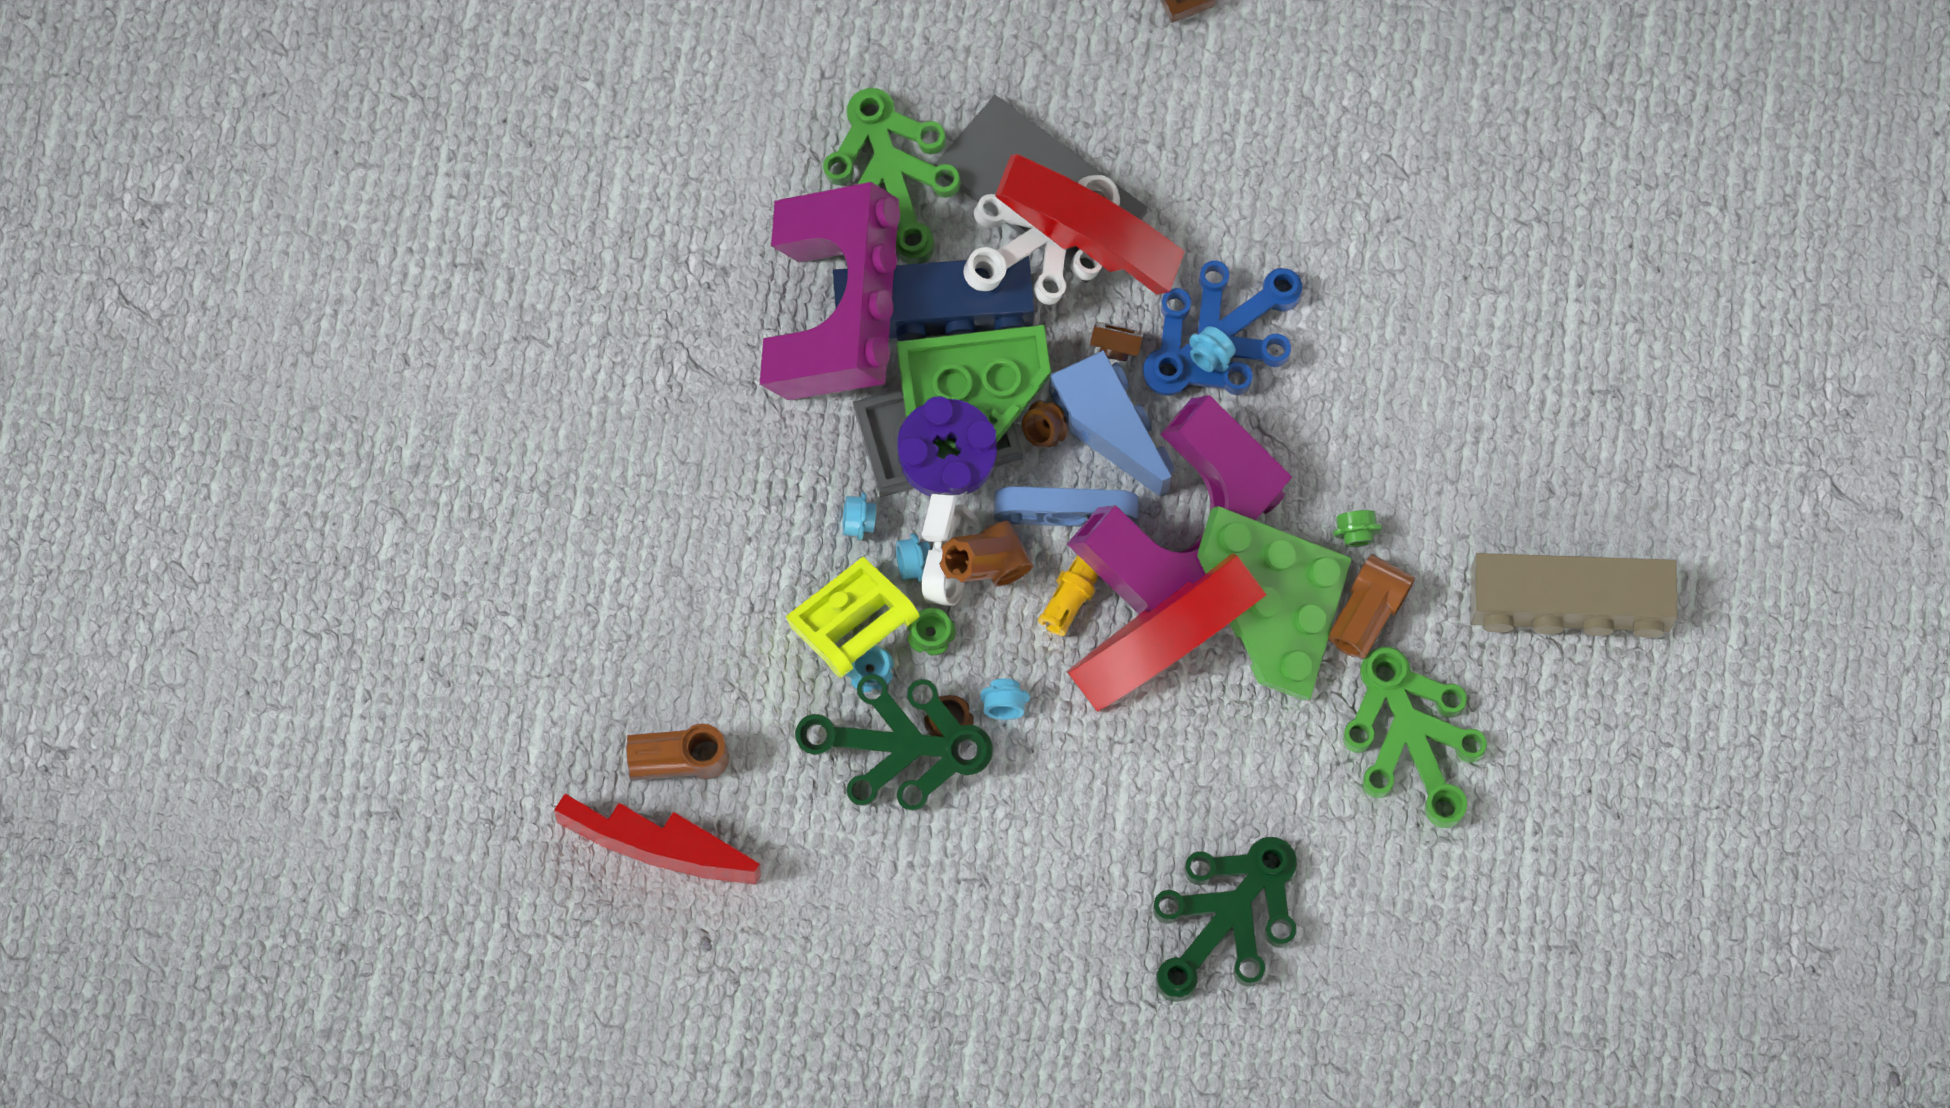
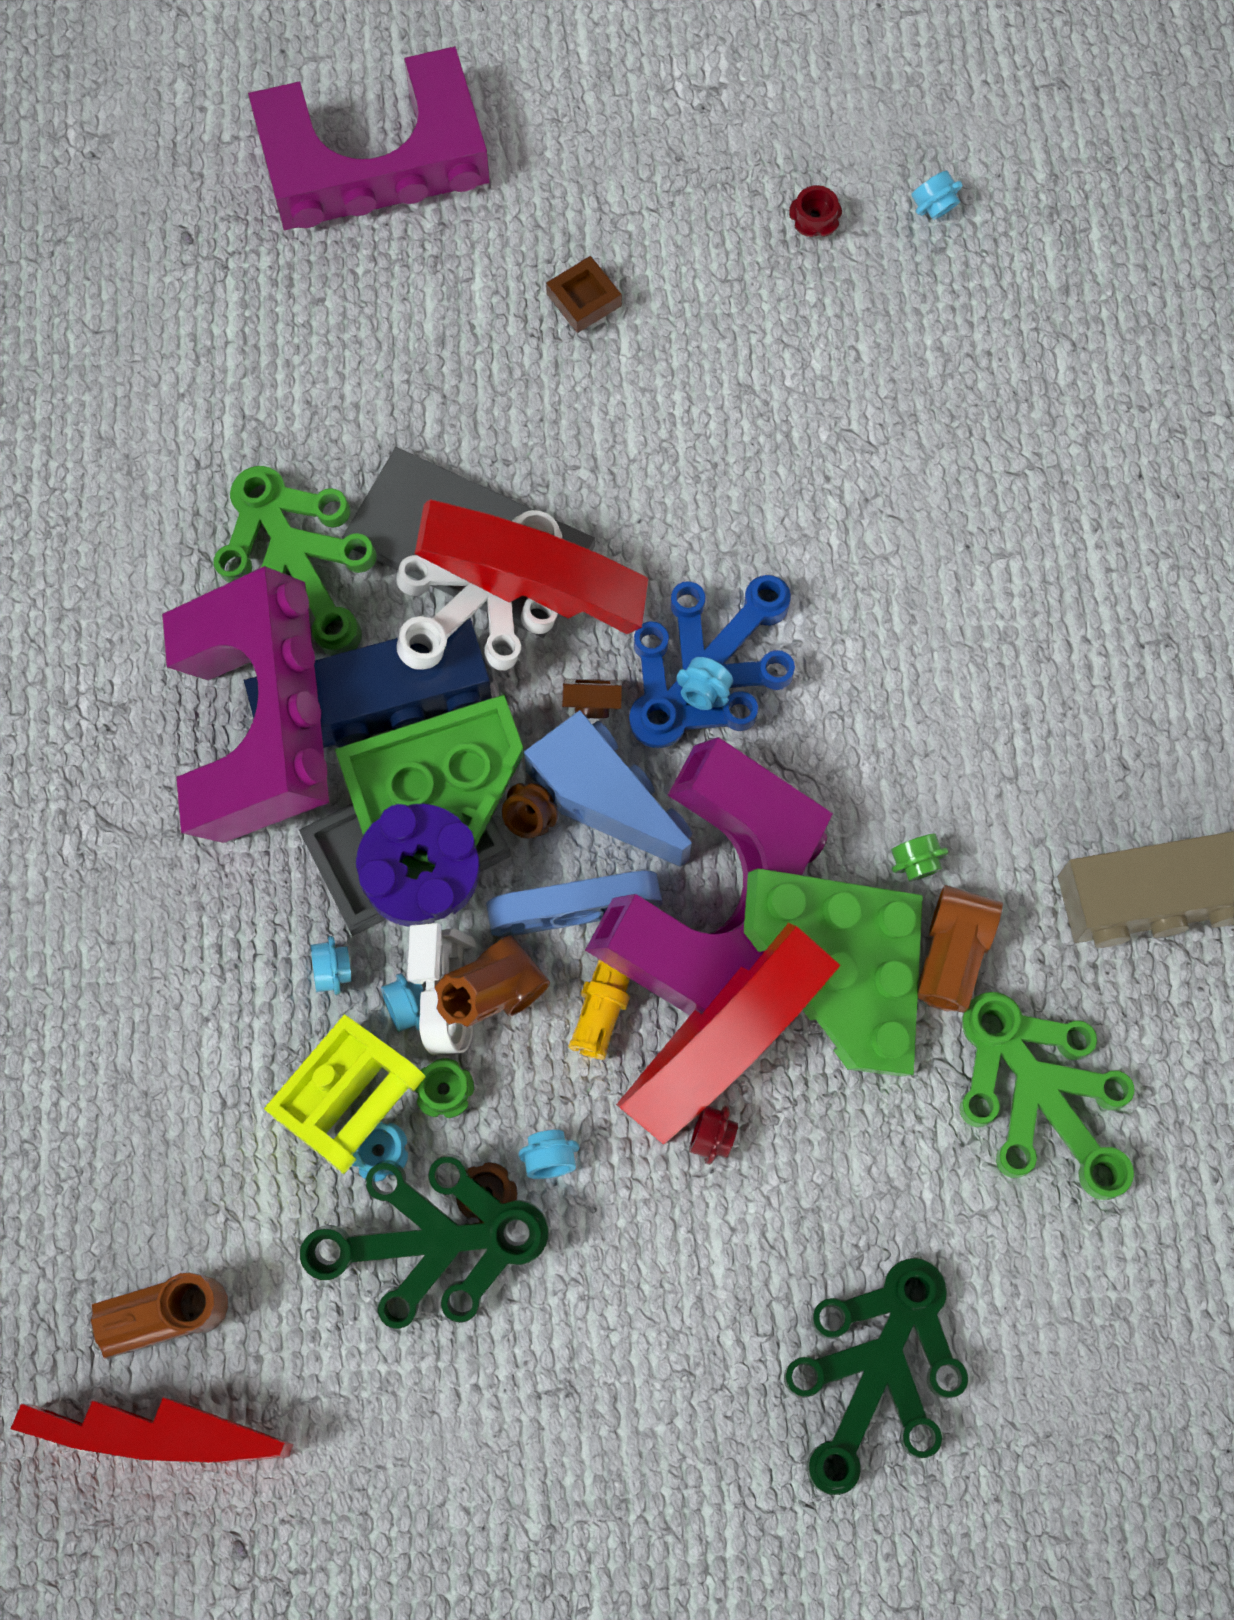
camera: 10 degrees left, 0 degrees up
(1139, 710) = (713, 1134): none -> dark red plate

